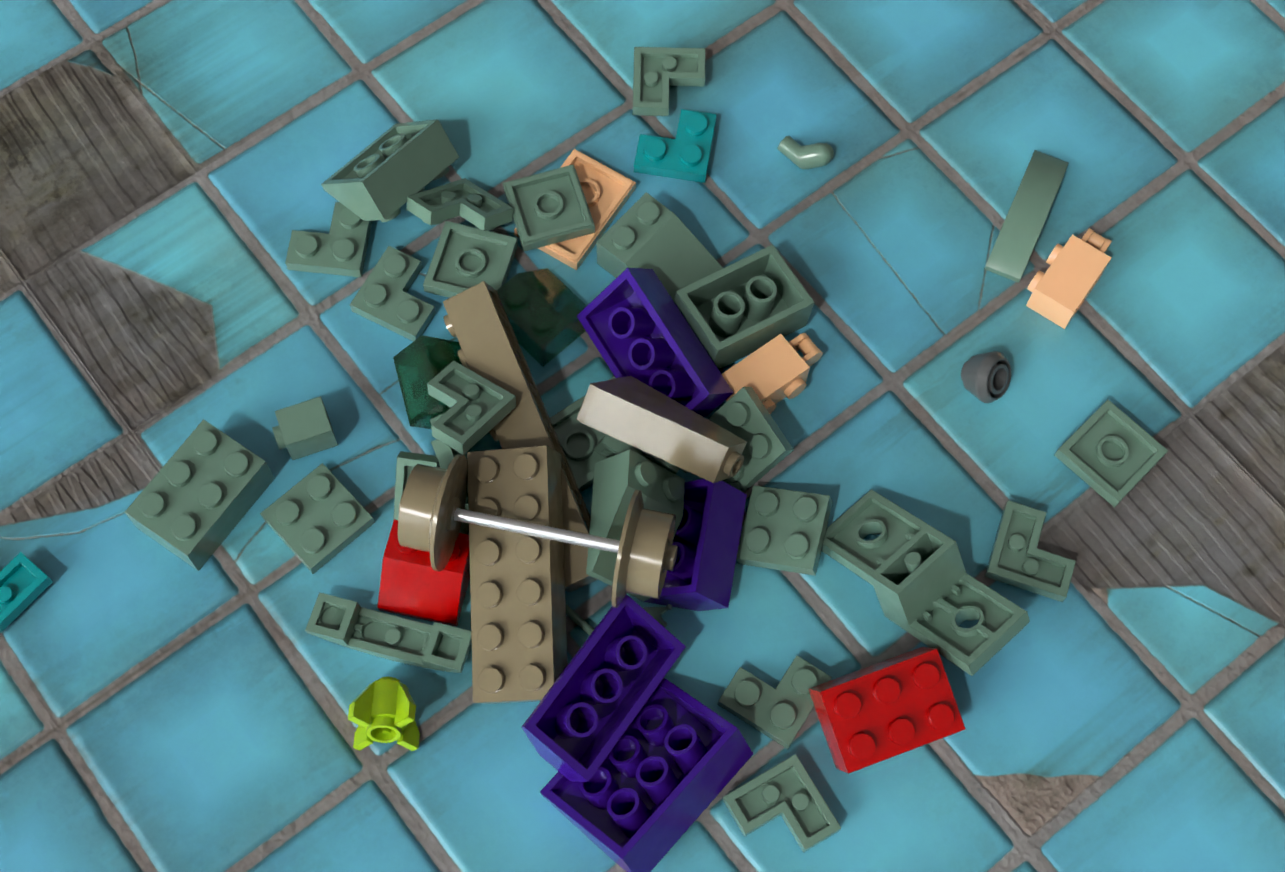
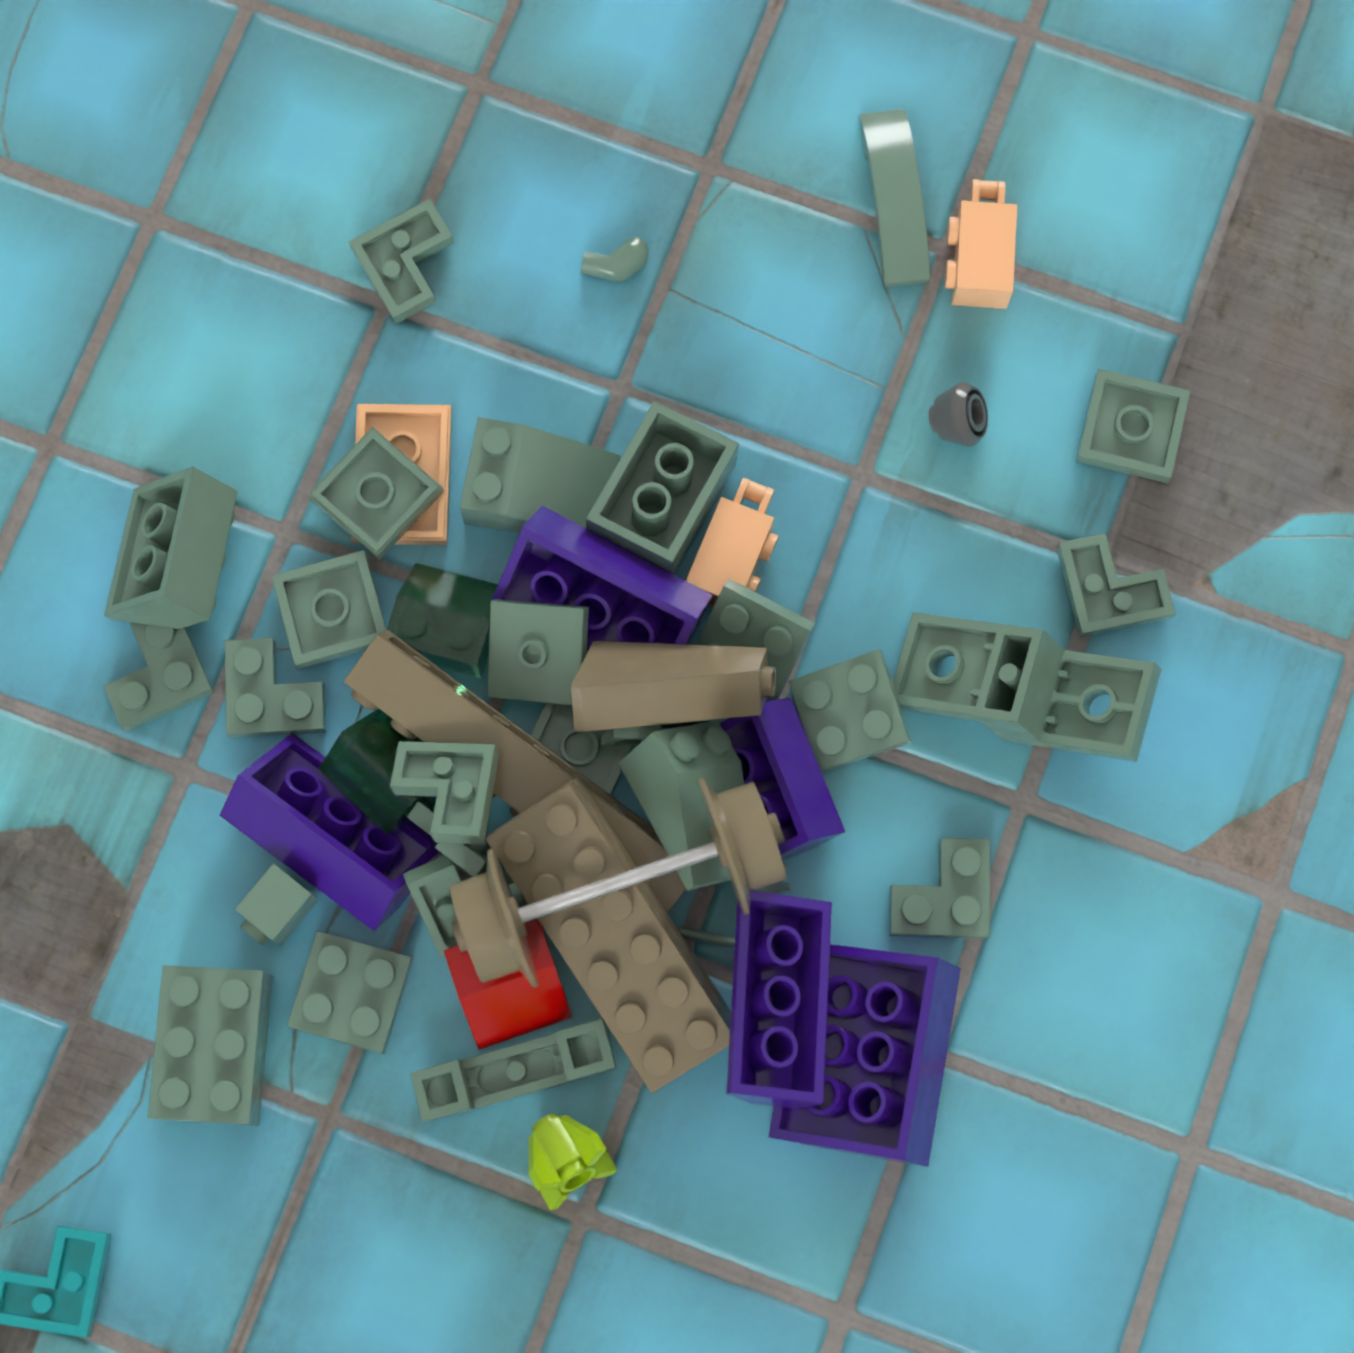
camera: 30 degrees left, 10 degrees up
(367, 399) = (323, 834): none -> dark purple slope
(463, 200) = (277, 539): sand green plate -> none
(586, 356) = (535, 650): none -> sand green plate
(681, 157) = (482, 343): teal plate -> none
(788, 793) = (1019, 986): sand green plate -> none
(886, 709) = (1067, 842): red brick -> none

